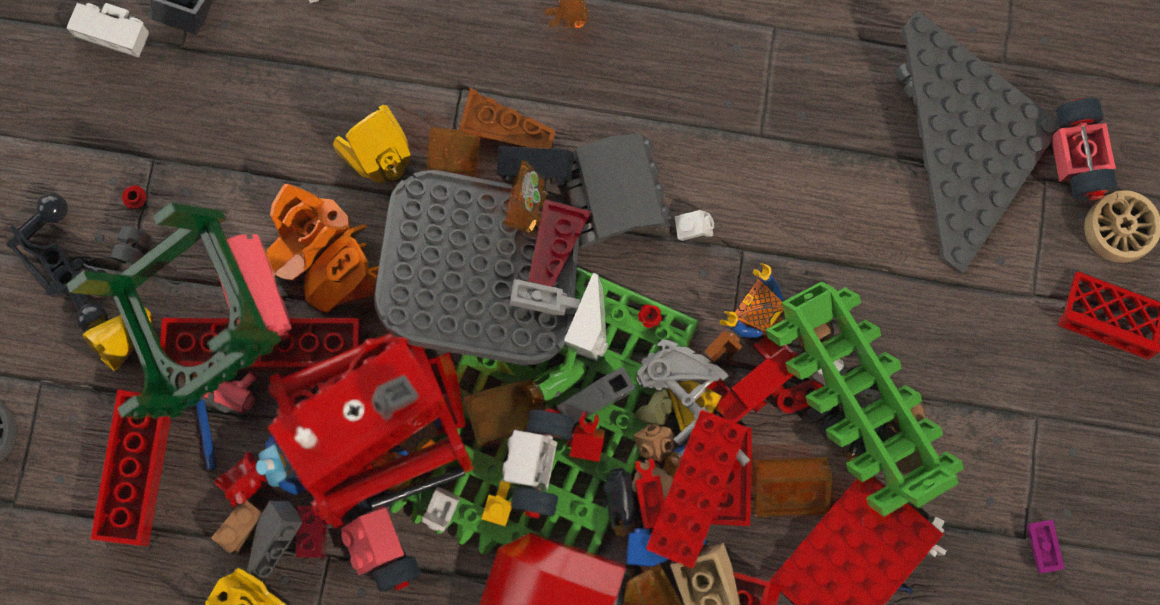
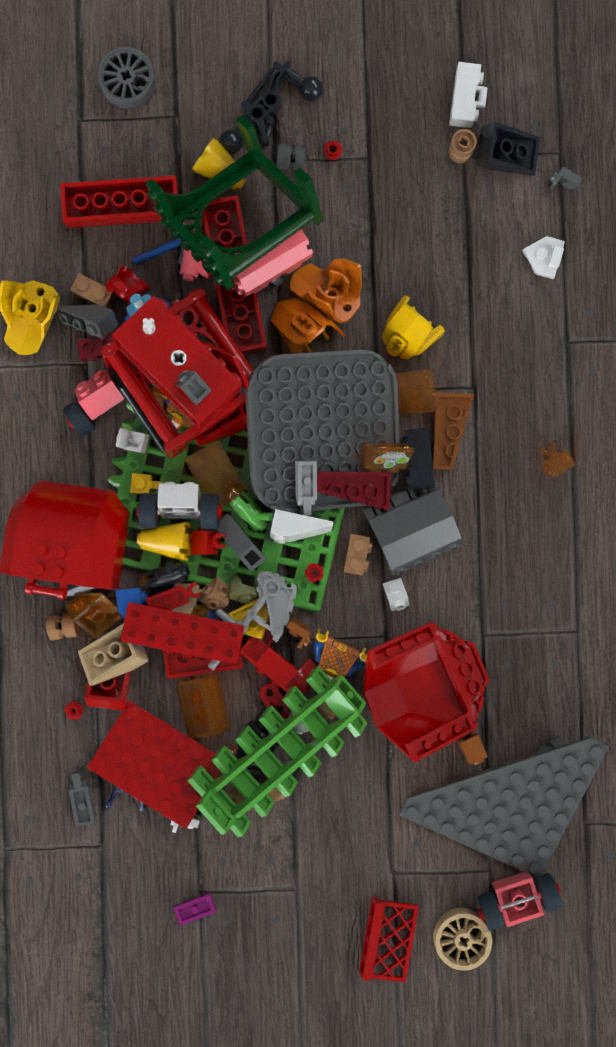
camera: 80 degrees right, 10 degrees up
(168, 44) = (462, 146): none -> medium nougat wheel
(576, 488) = (167, 540): none -> yellow cone
(636, 261) = (356, 554): none -> medium nougat brick
(816, 211) = (424, 689): none -> red windscreen
(893, 169) = (472, 748): none -> dark orange brick

